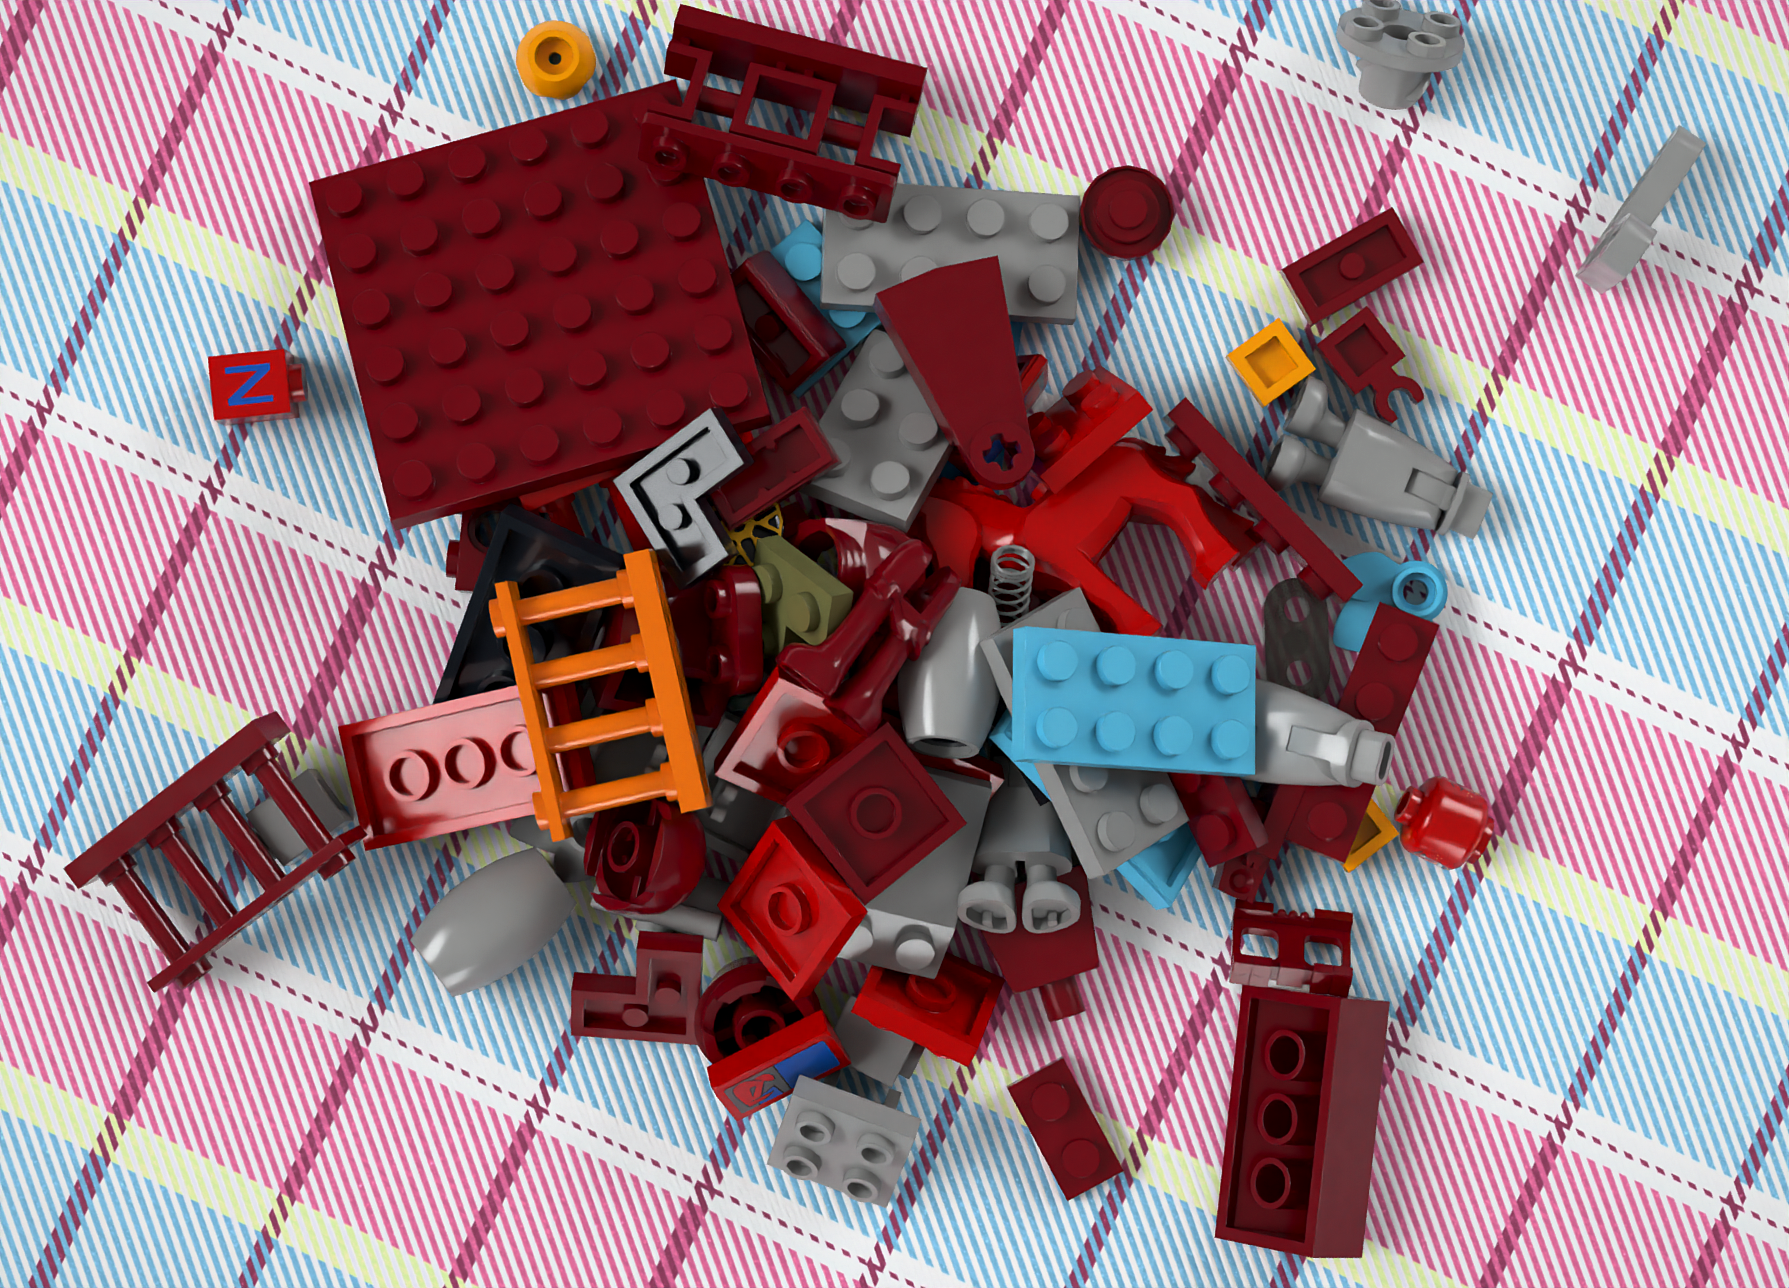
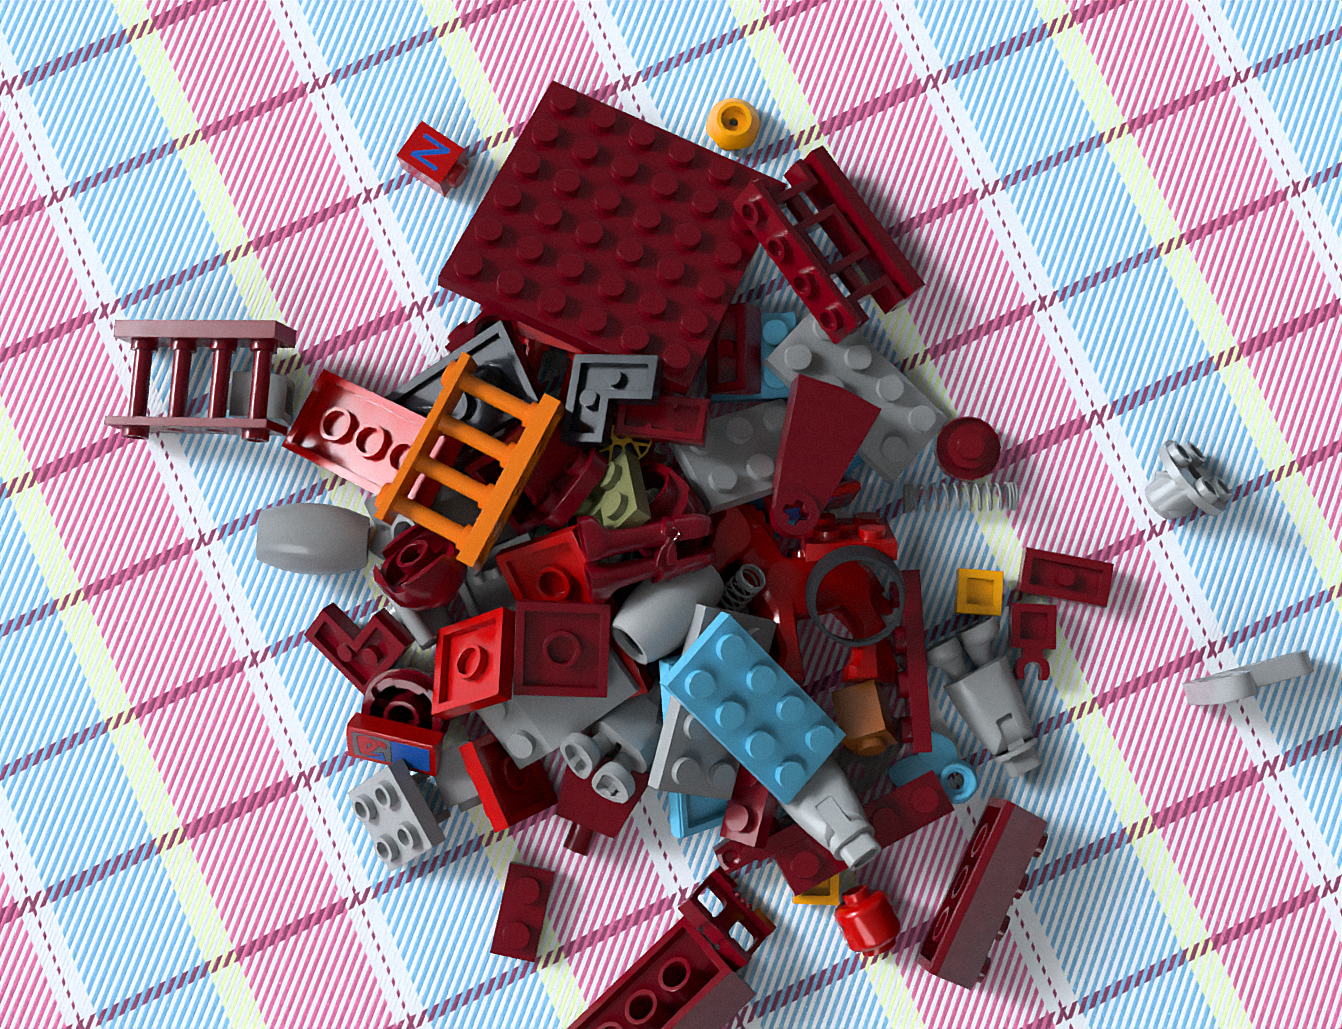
camera: 35 degrees right, 5 degrees down
(1094, 451) = (842, 555): none -> black tyre
(1218, 224) = (1012, 495): none -> light grey piece
(1261, 608) = (865, 718): none -> dark orange brick
(1543, 690) = (982, 892): none -> dark red slope

